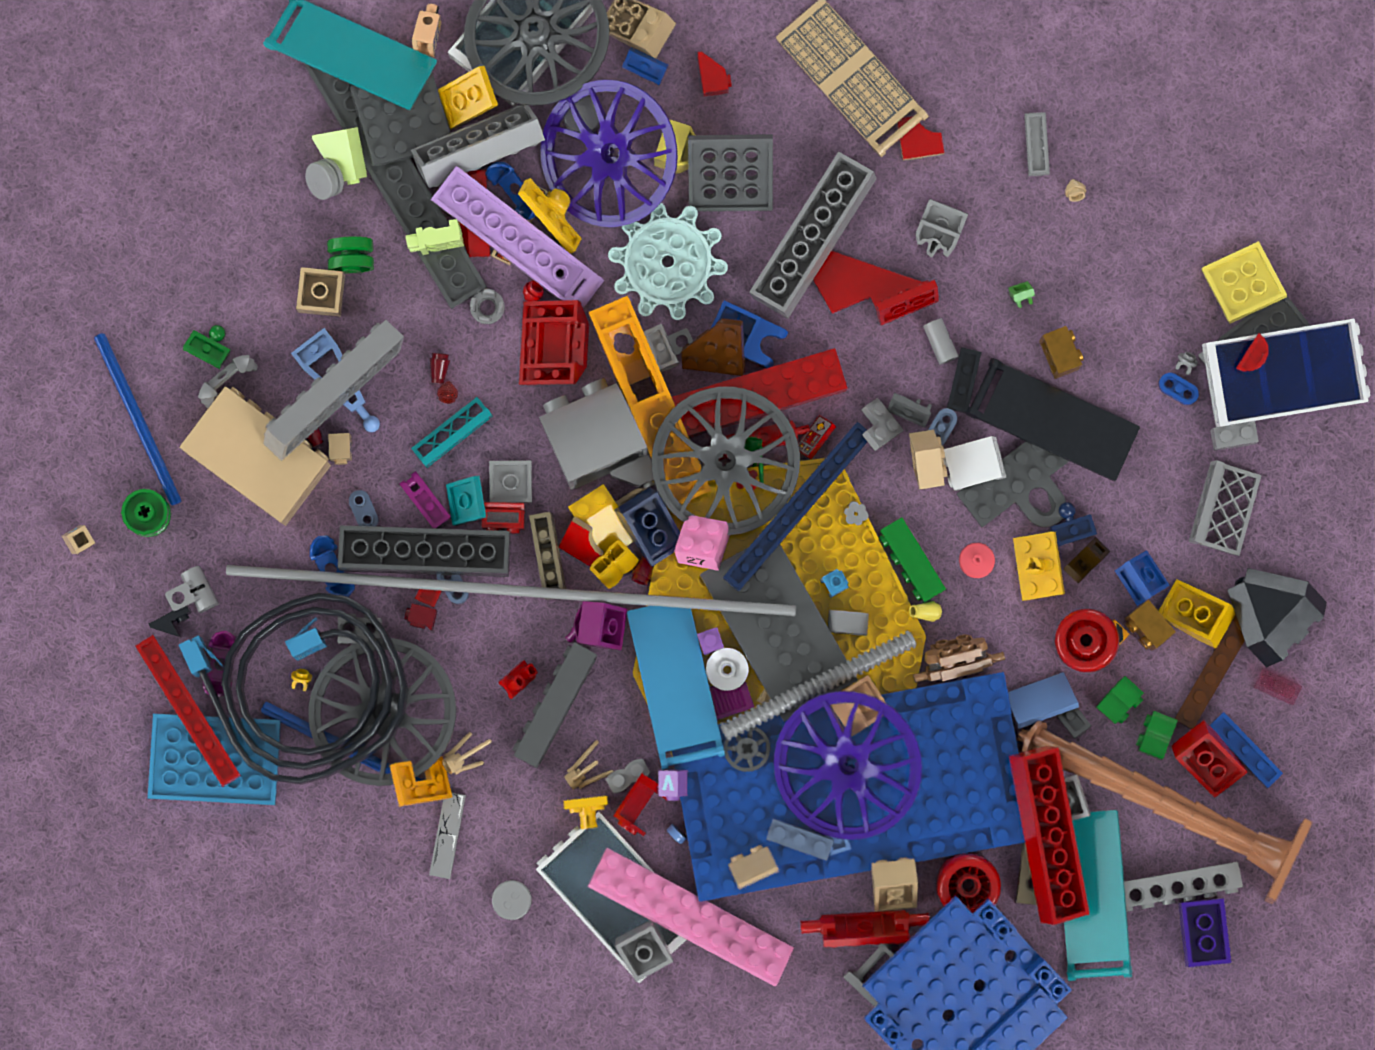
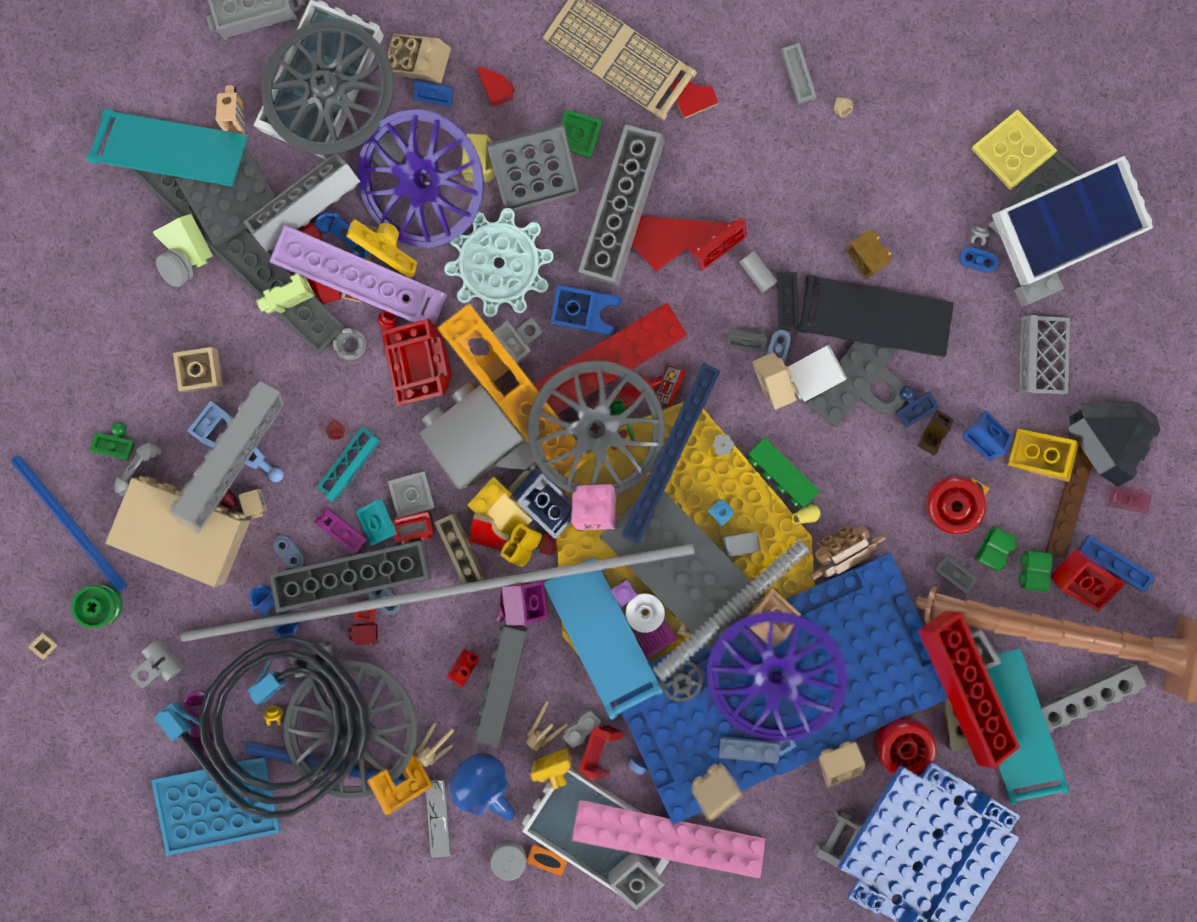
camera: 15 degrees left, 5 degrees up
(166, 622) = (142, 698): black slope -> none
(187, 711) = (180, 772): red plate -> none
(350, 254) = (215, 329): green wheel -> none
(439, 365) = (321, 408): dark red cone -> none
(467, 97) = (281, 161): yellow plate -> none
(500, 806) = (480, 785): none -> blue piece
(553, 910) = (546, 860): none -> orange tile
(672, 784) = (623, 729): medium lavender brick -> none
(717, 349) = (563, 330): reddish brown plate -> none
(790, 147) = (581, 132): none -> green plate
(864, 927) = (824, 807): red plate -> none
(884, 427) = (728, 360): light grey plate -> none
(940, 227) = (732, 170): light grey plate -> none
(977, 560) = (838, 457): coral piece -> none
(1020, 292) = (819, 209): bright green tile -> none
(1038, 566) = (895, 449): yellow plate -> none
(1042, 700) = (929, 567): medium blue tile -> none
(1149, 626) = (1008, 477): pearl gold brick -> none
(1204, 932) = (1122, 735): dark purple brick -> none
(1255, 355) = (1045, 211): red plate -> none

